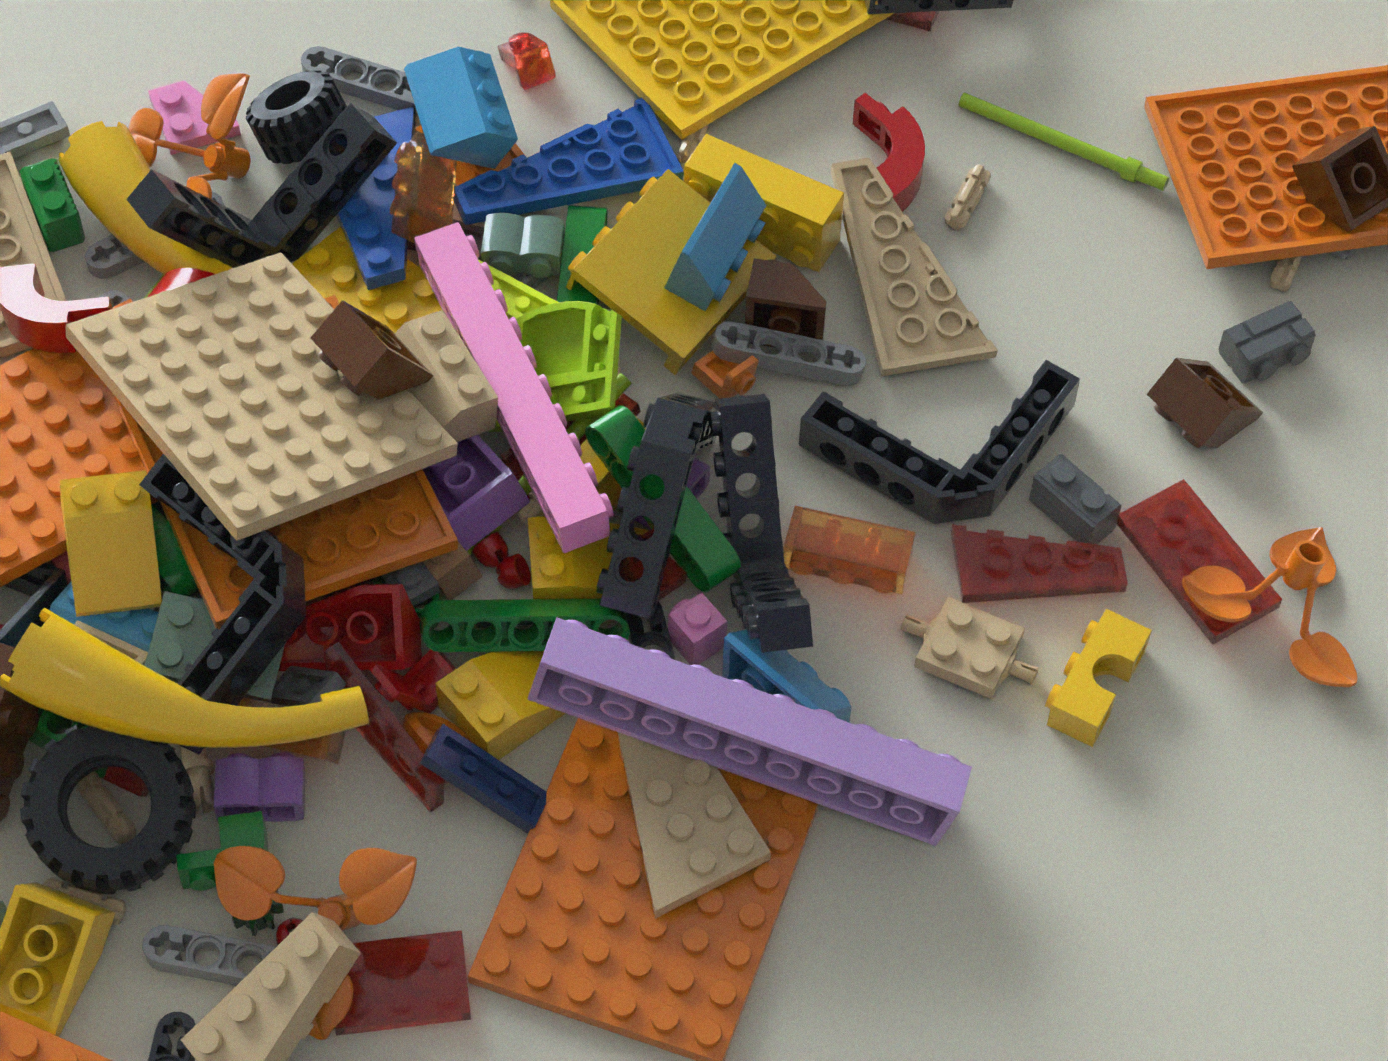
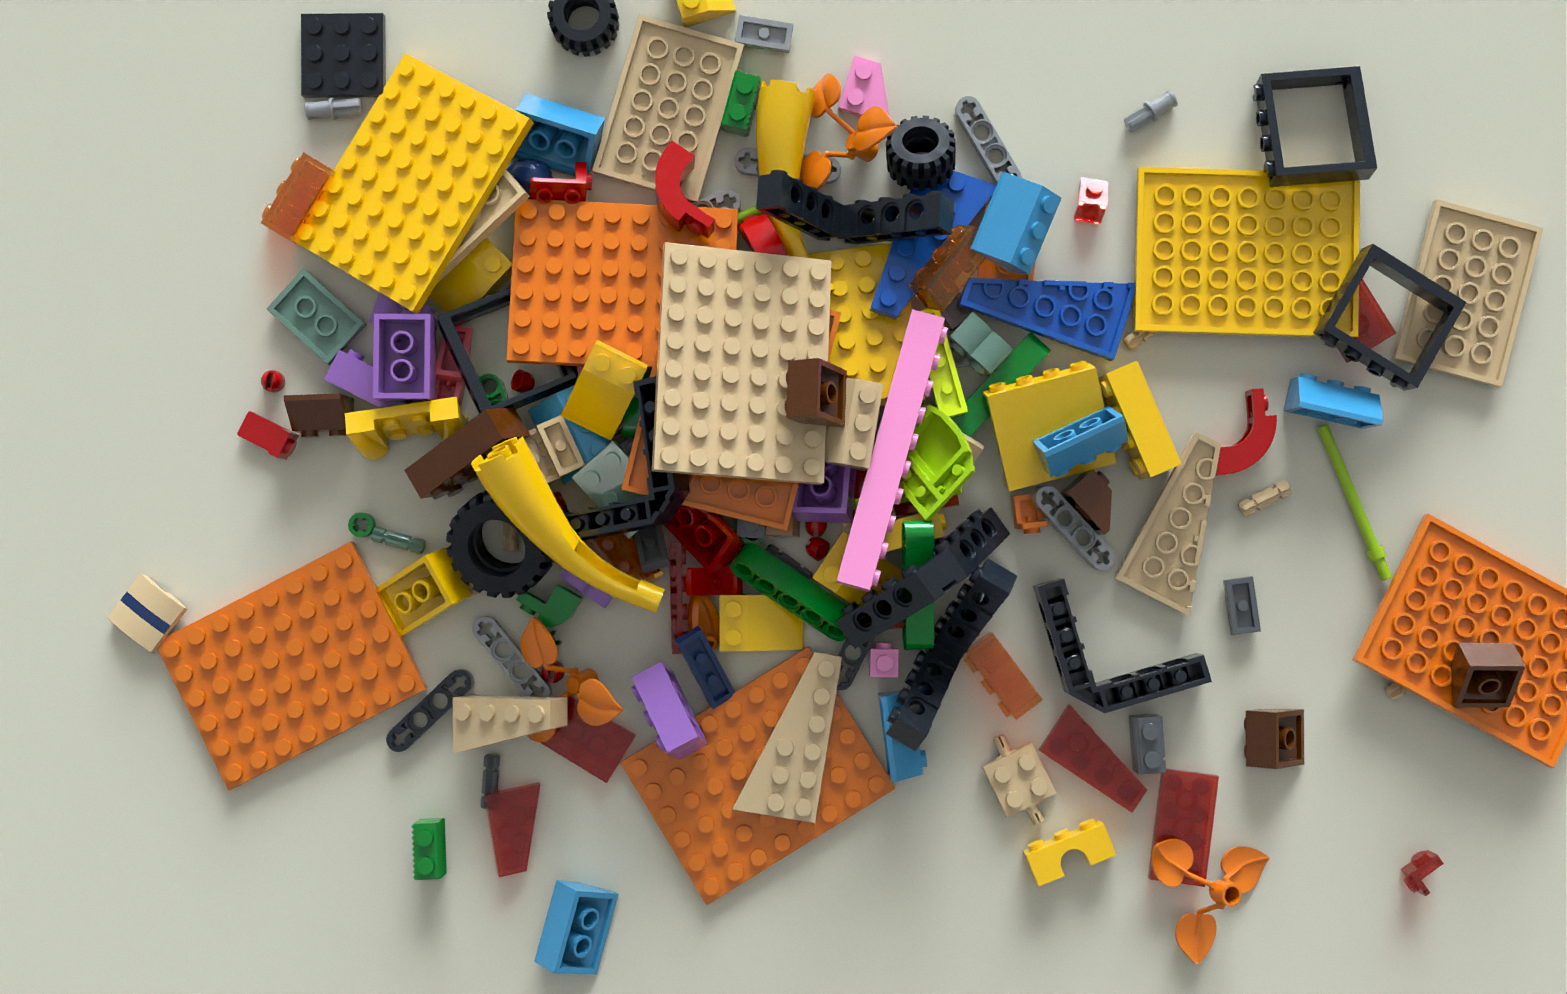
camera: 40 degrees right, 30 degrees up
(480, 847) = (668, 711): none -> medium lavender brick
(749, 732) = (846, 756): lavender brick -> none
(952, 67) = (1333, 402): none -> dark azure slope
(1043, 306) = (1242, 605): none -> dark grey plate
(1267, 342) = (1344, 728): dark grey brick -> none

